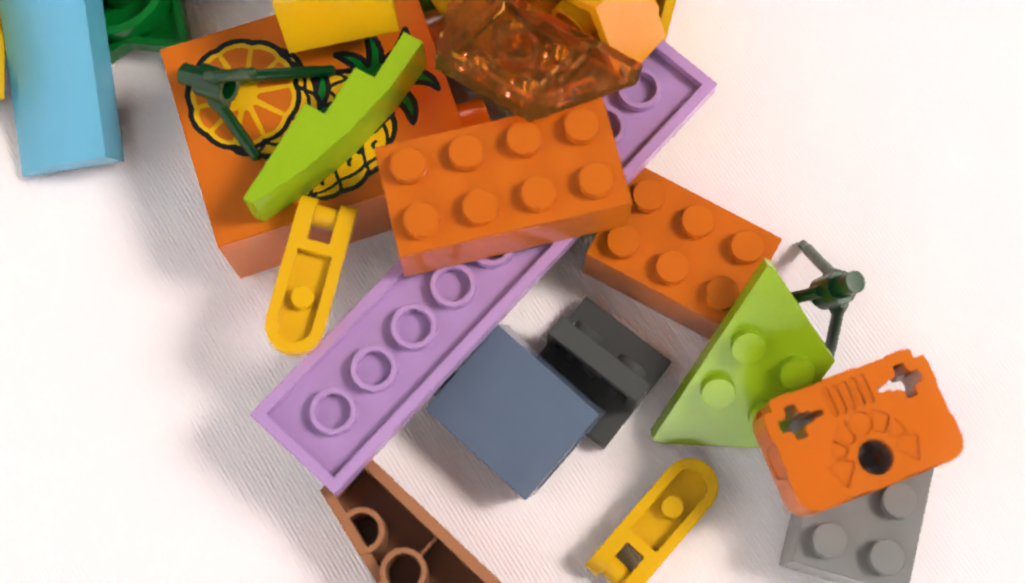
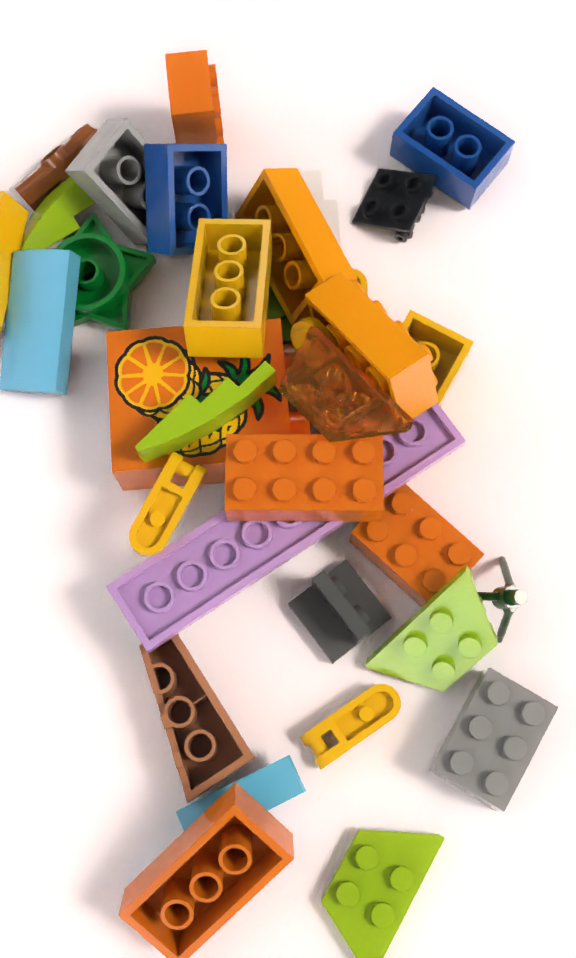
camera: 15 degrees right, 0 degrees up
(222, 86) = (140, 366): dark green plant -> none
(515, 410) = (279, 624): sand blue brick -> none
(849, 416) = (529, 703): orange axle -> none

